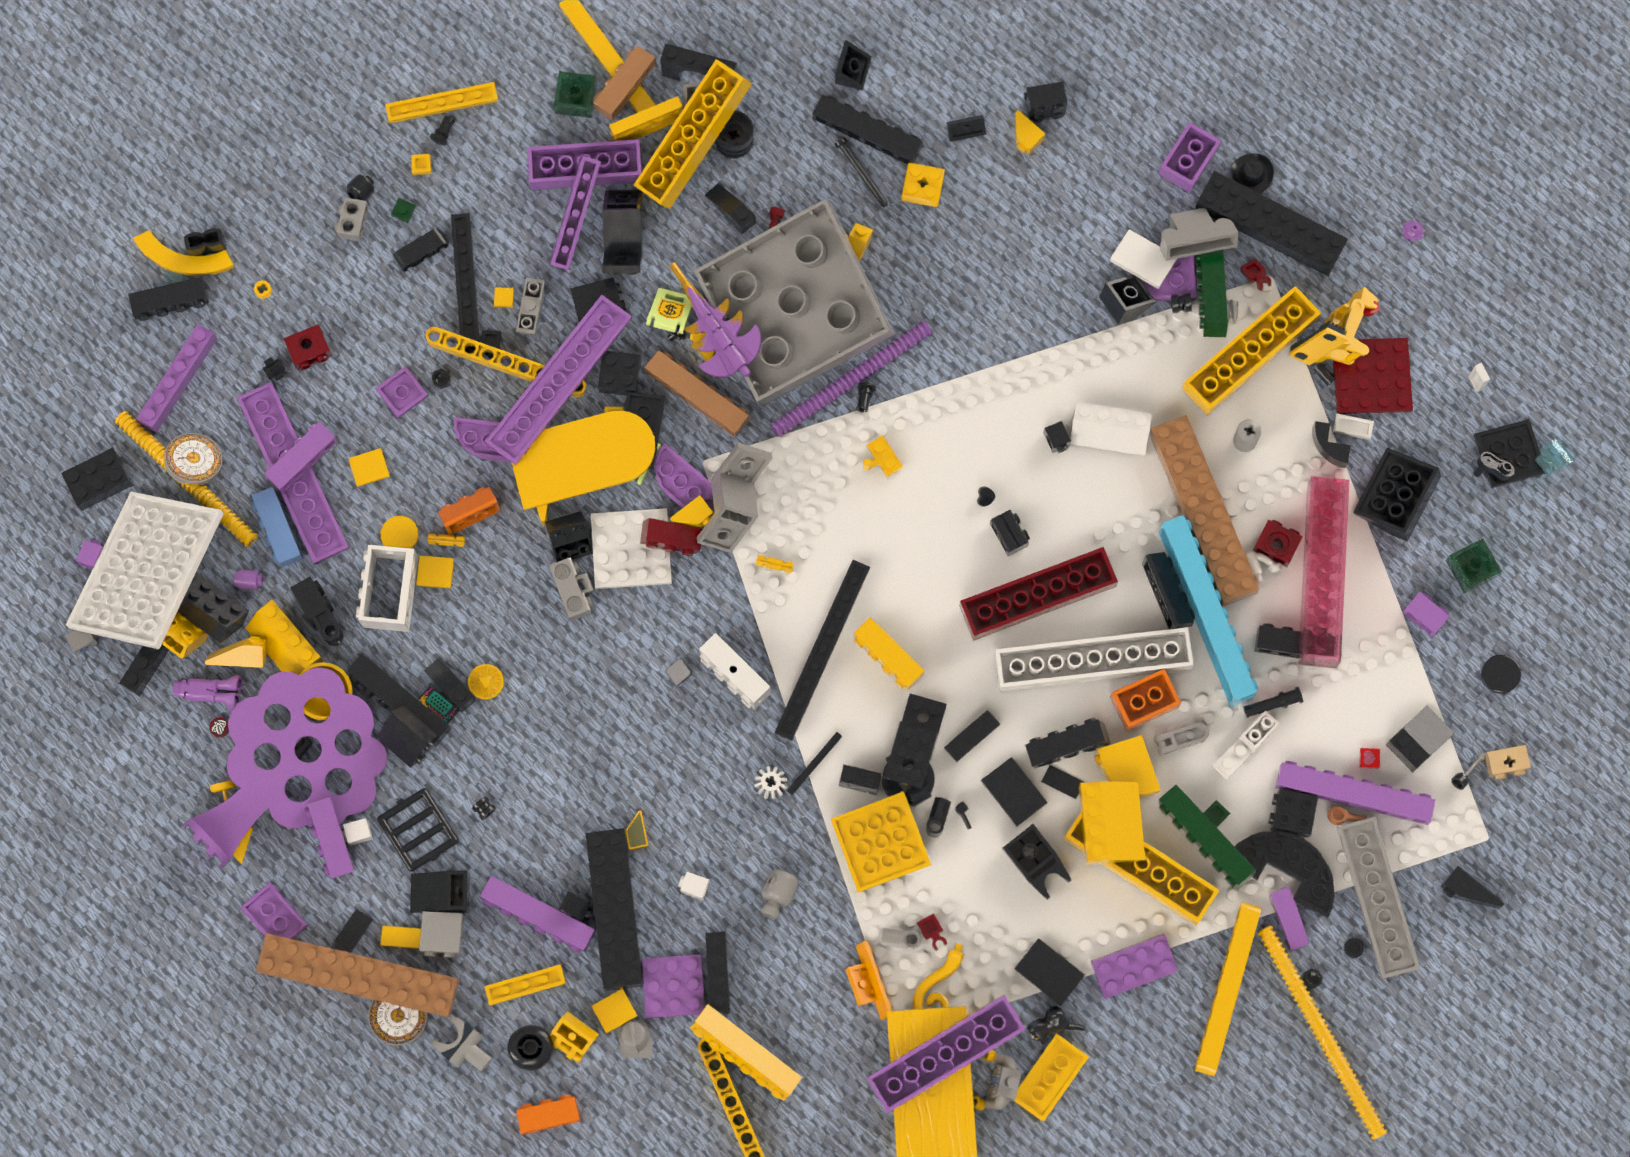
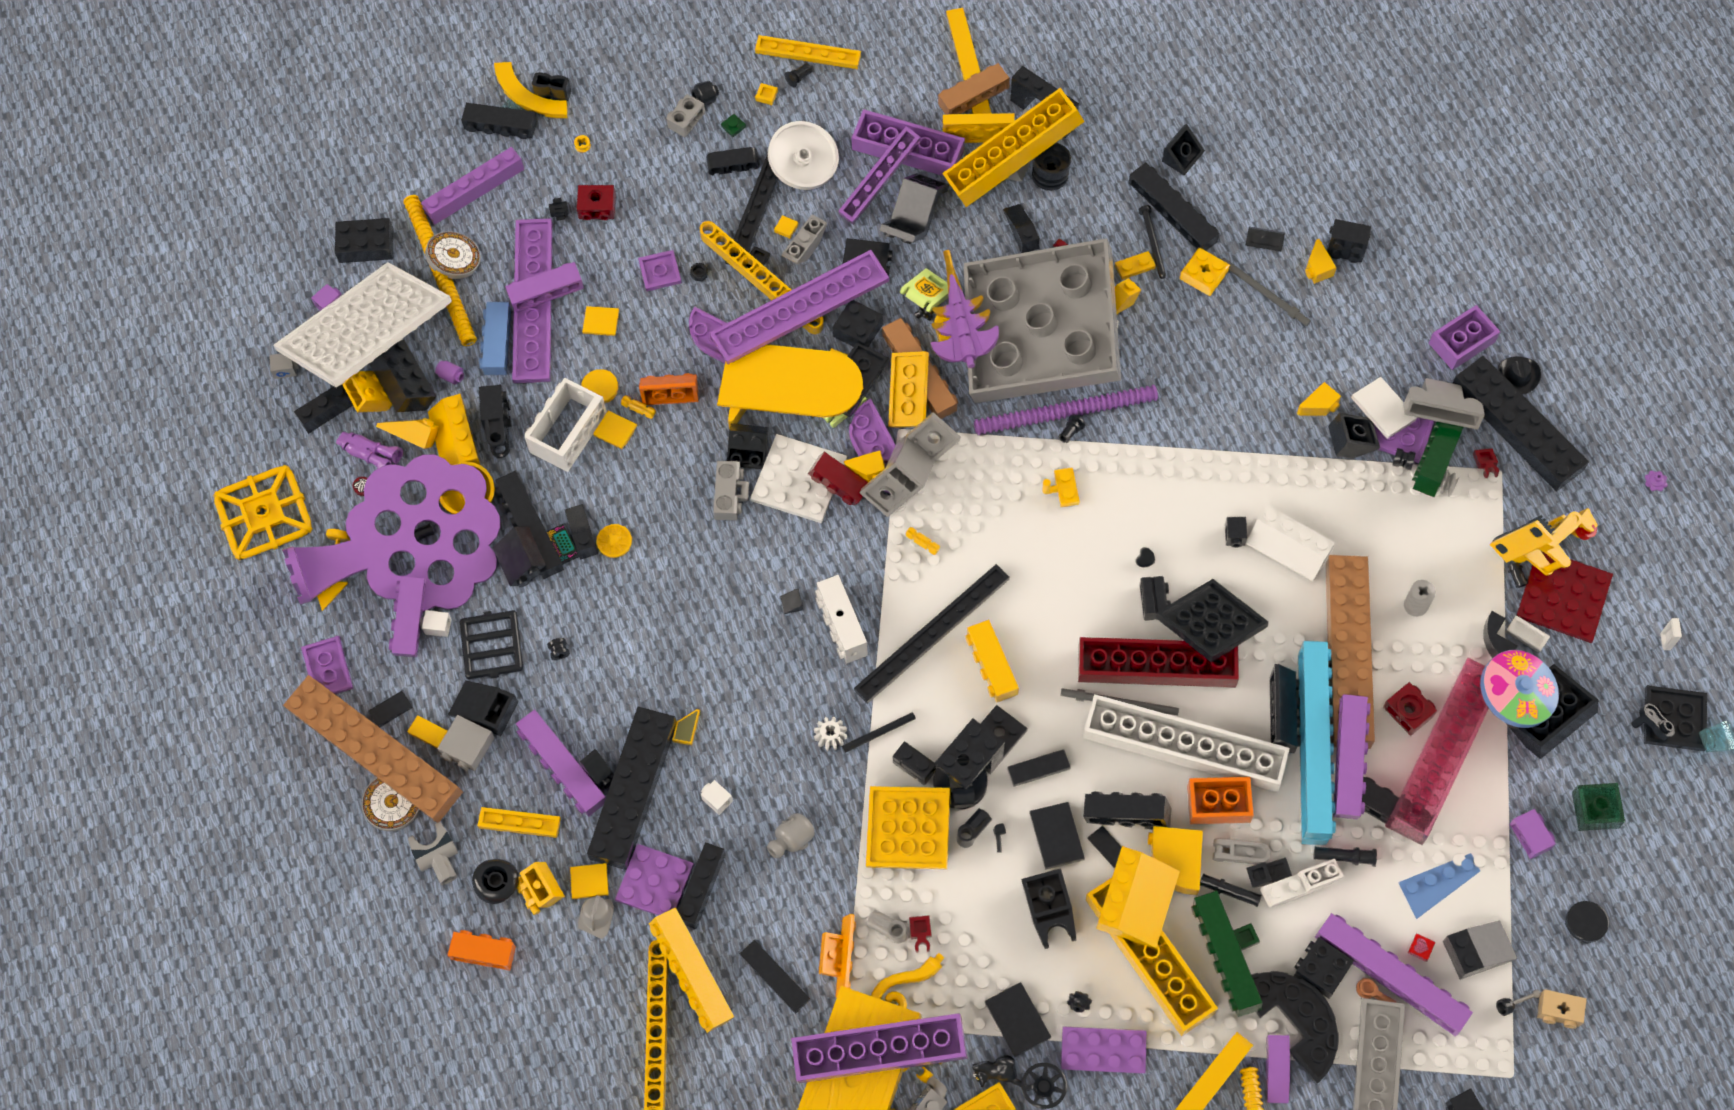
camera: 25 degrees right, 10 degrees down
(135, 805) = (273, 516): none -> yellow plate
(488, 217) = (803, 155): none -> white dish
(575, 94) = (925, 84): clear green brick -> none
(697, 420) = (908, 389): none -> yellow plate
(819, 1025) = (774, 976): none -> black tile
(854, 203) = (1135, 265): none -> yellow plate
(981, 652) = (1081, 695): none -> dark grey bar
(1021, 192) = (1293, 312): none -> dark grey bar
(1071, 534) = (1212, 620): none -> black plate
(1083, 275) = (1320, 402): none -> yellow slope
(1096, 934) = (1079, 1001): none -> black plant
(1097, 1020) = (1044, 1086): none -> black wheel
(1185, 777) = (1230, 890): none -> black pin
(1213, 747) = (1268, 873): none -> black slope
(1244, 613) = (1350, 757): none -> medium lavender brick
(1251, 350) = (1454, 524): yellow brick -> none
(1253, 560) = (1380, 715): white plant -> none
(1360, 694) = (1434, 885): none -> medium blue wing
(1367, 487) = (1519, 688): none -> dish

